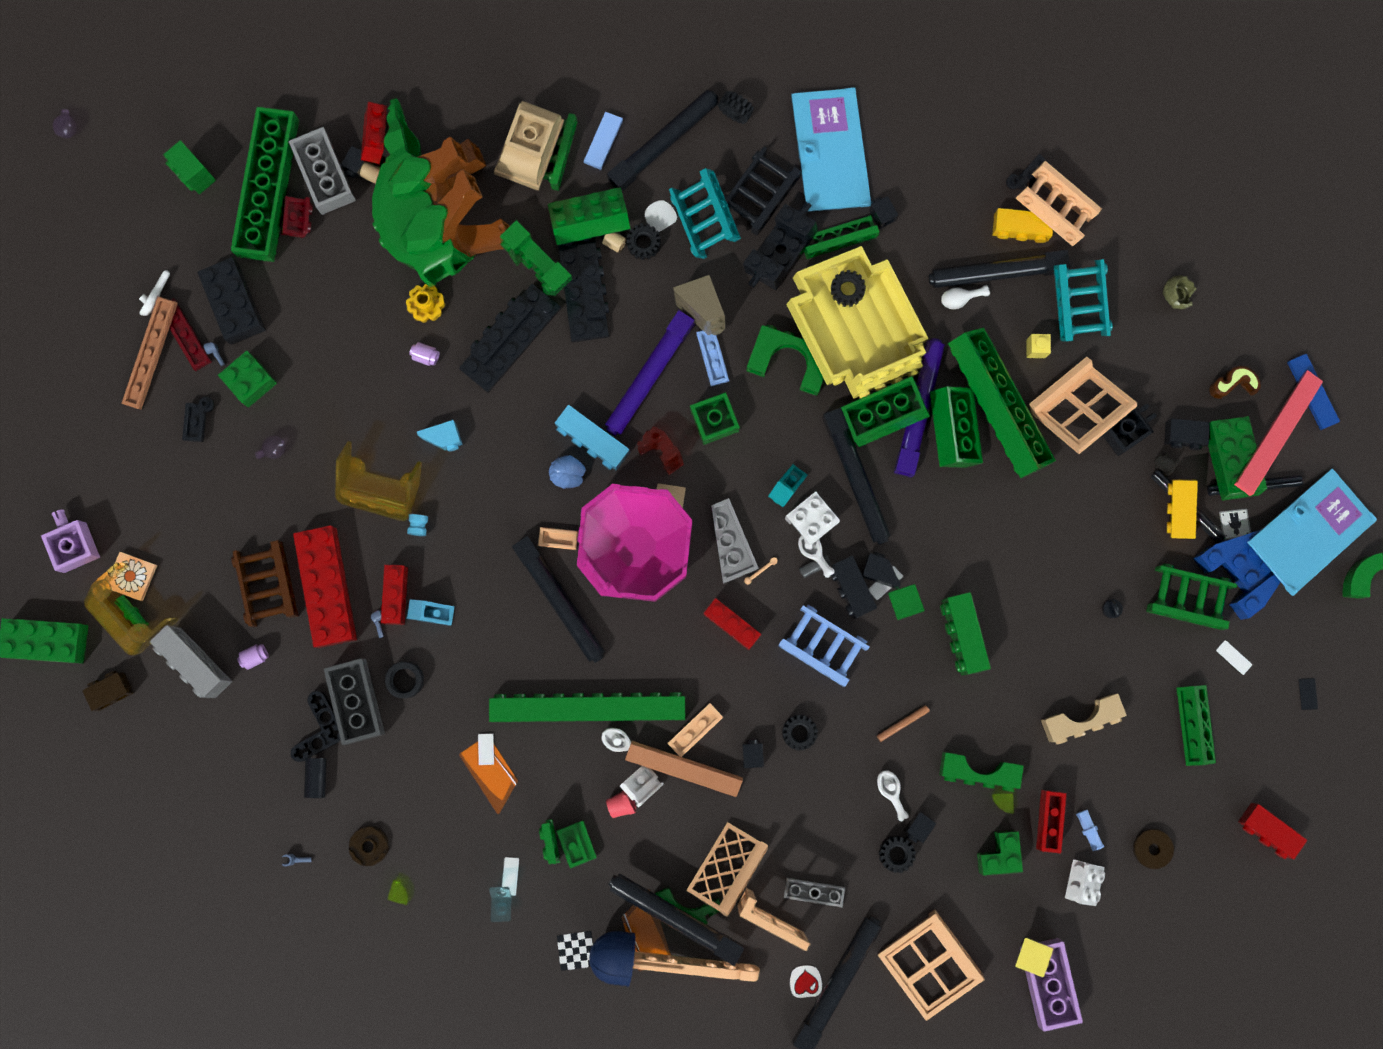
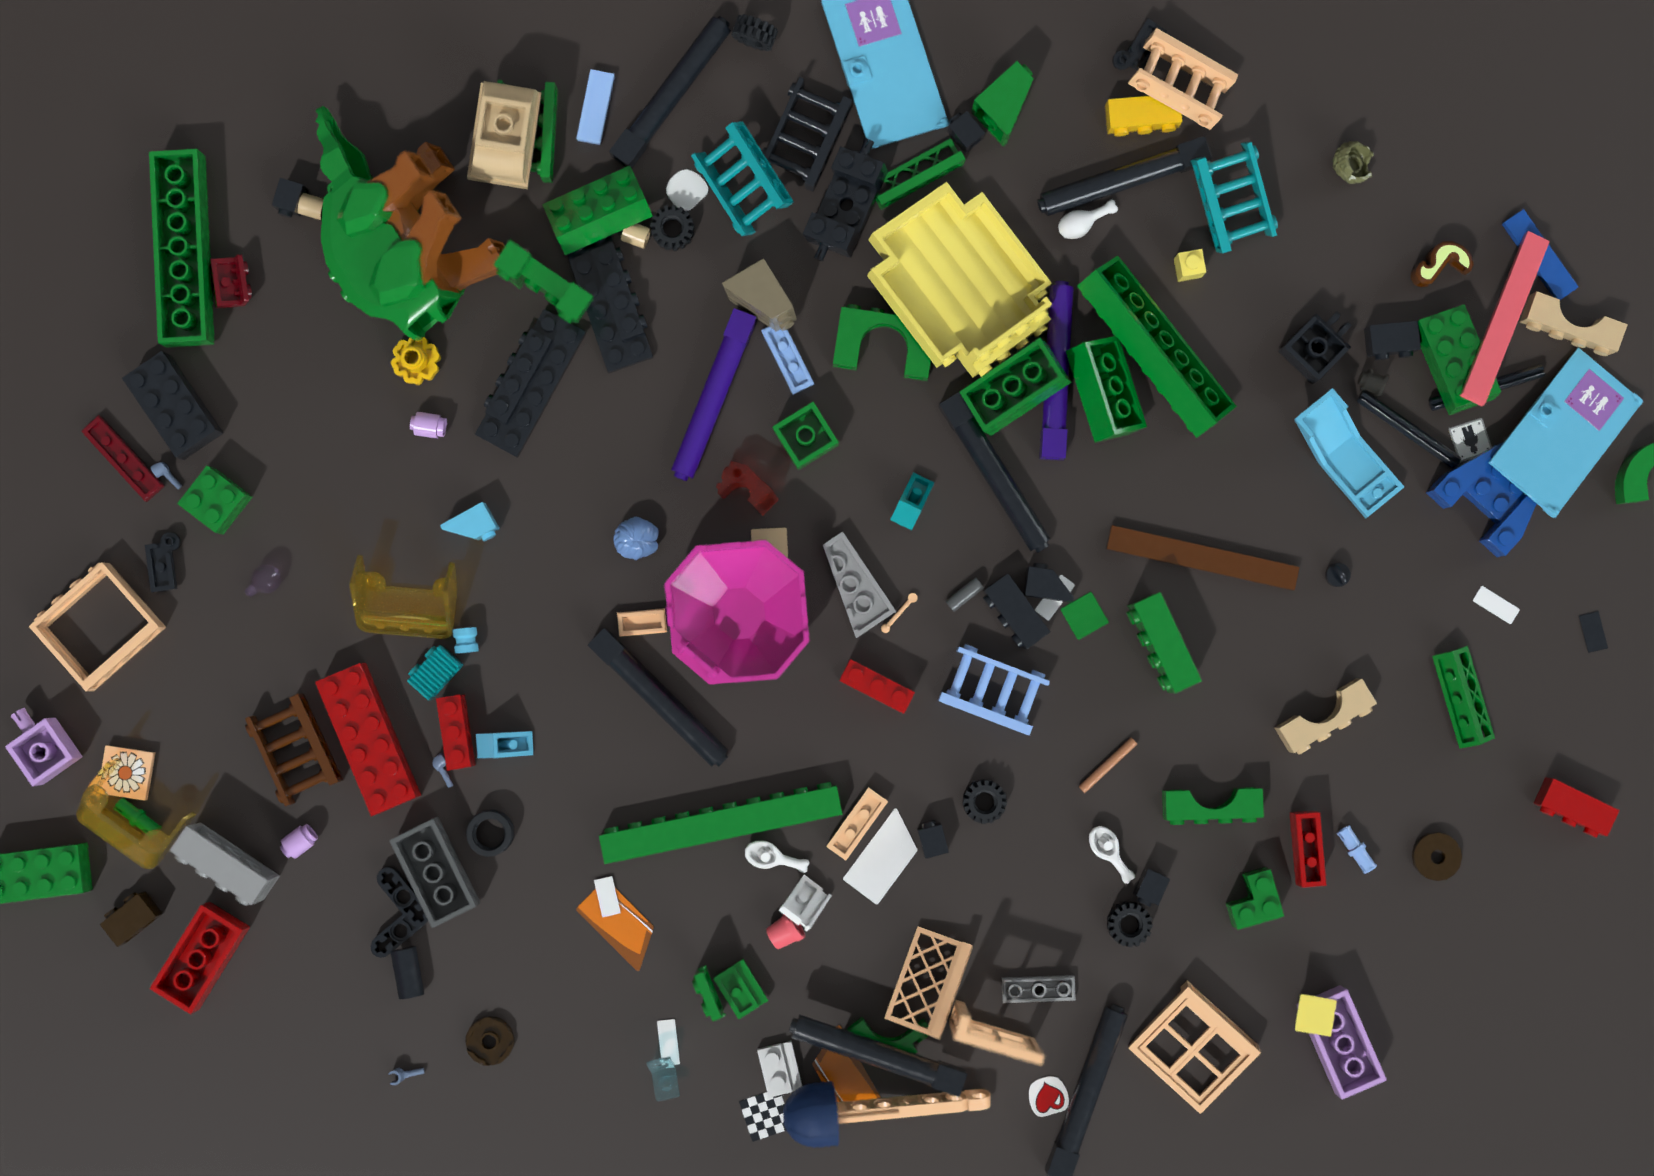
camera: 10 degrees left, 5 degrees up
(114, 434) = (120, 657): none -> light nougat window
(149, 302) = (73, 423): white piece -> none
(149, 353) = (85, 491): nougat tile -> none
(154, 732) = (199, 957): none -> red brick
(188, 168) = (80, 247): green brick -> none
(322, 170) = (249, 217): light grey brick -> none
(373, 132) = (304, 155): red brick -> none
(388, 545) = (434, 672): none -> teal brick
(398, 893) = (537, 1089): clear neon green tile -> none
(592, 438) = (659, 489): medium azure brick -> none
(594, 915) = (779, 1068): none -> white plate
(684, 768) = (852, 873): nougat tile -> none
(717, 753) = (882, 859): none -> white sticker
(812, 518) = (950, 537): white bracket -> none
(815, 553) = (956, 573): white piece -> none
(848, 299) = (947, 253): black tyre -> none
(916, 194) = (1002, 101): none -> green slope
(1004, 801) = (1247, 835): clear neon green tile -> none
(1008, 574) = (1202, 558): none -> reddish brown tile
(1063, 390) = (1231, 314): light nougat window -> none
(1085, 883) = (1361, 913): white bracket -> none
(1135, 516) = (1346, 455): none -> medium azure windscreen
(1178, 611) = (1419, 562): green fence -> none
(1182, 508) = (1402, 435): yellow brick -> none
(1310, 437) = (1544, 314): none -> tan arch

